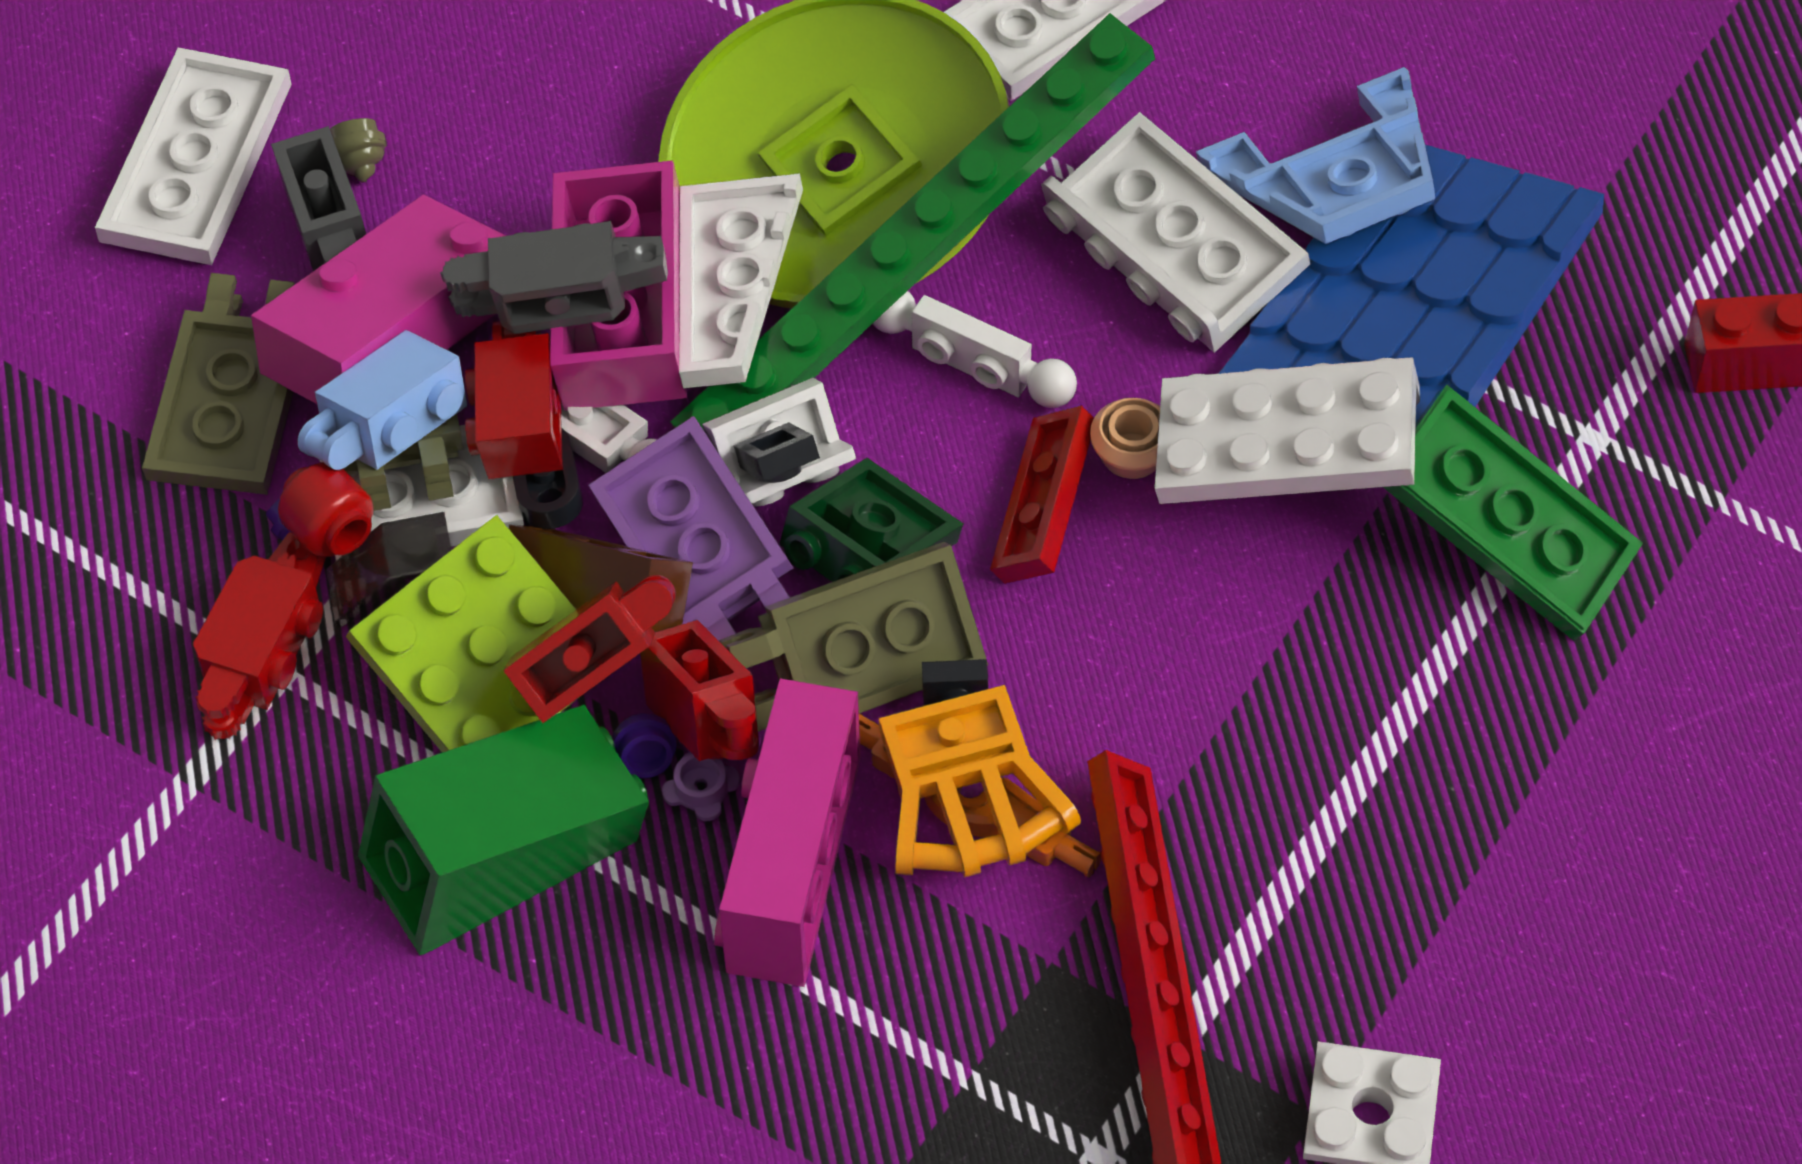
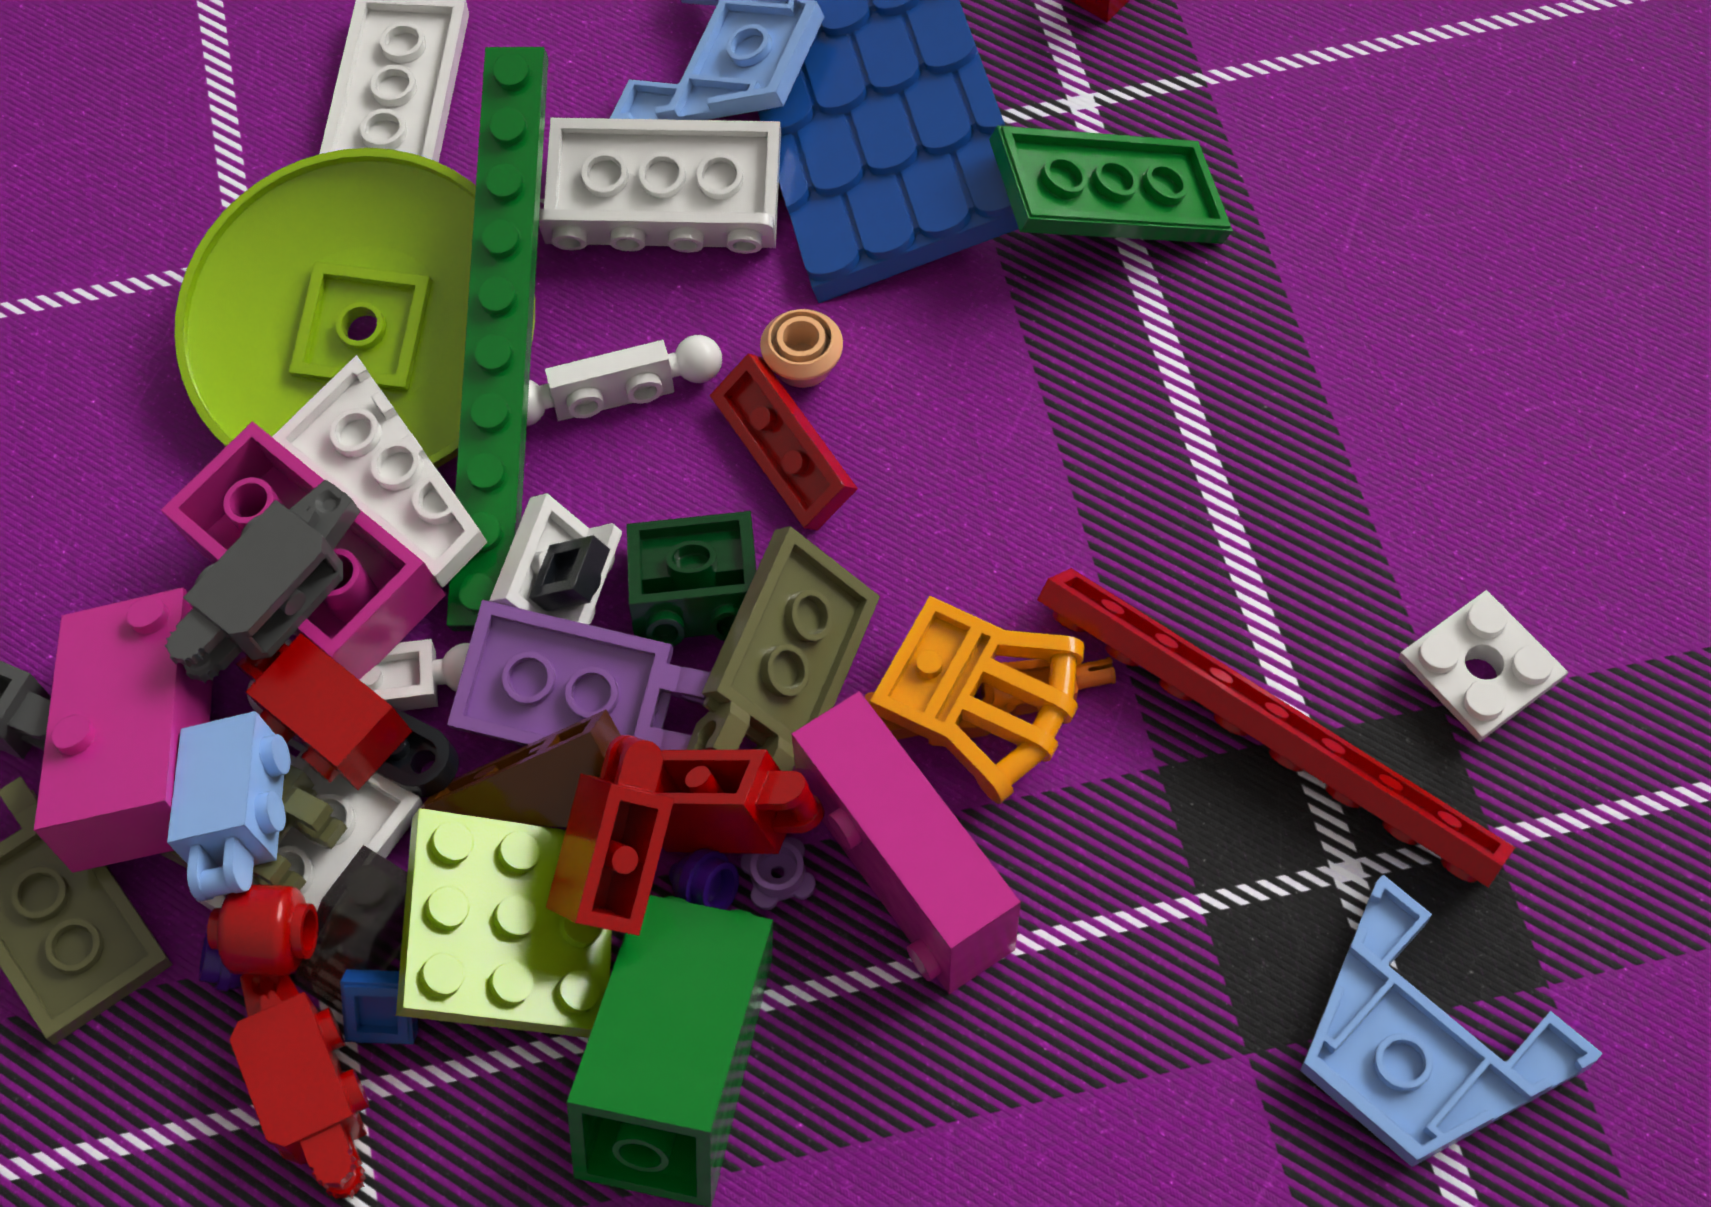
camera: 45 degrees left, 5 degrees up
(344, 613) = (370, 1008): none -> blue tile
(952, 679) = (882, 633): black plate -> none
(1287, 431) = (925, 246): white bracket -> none

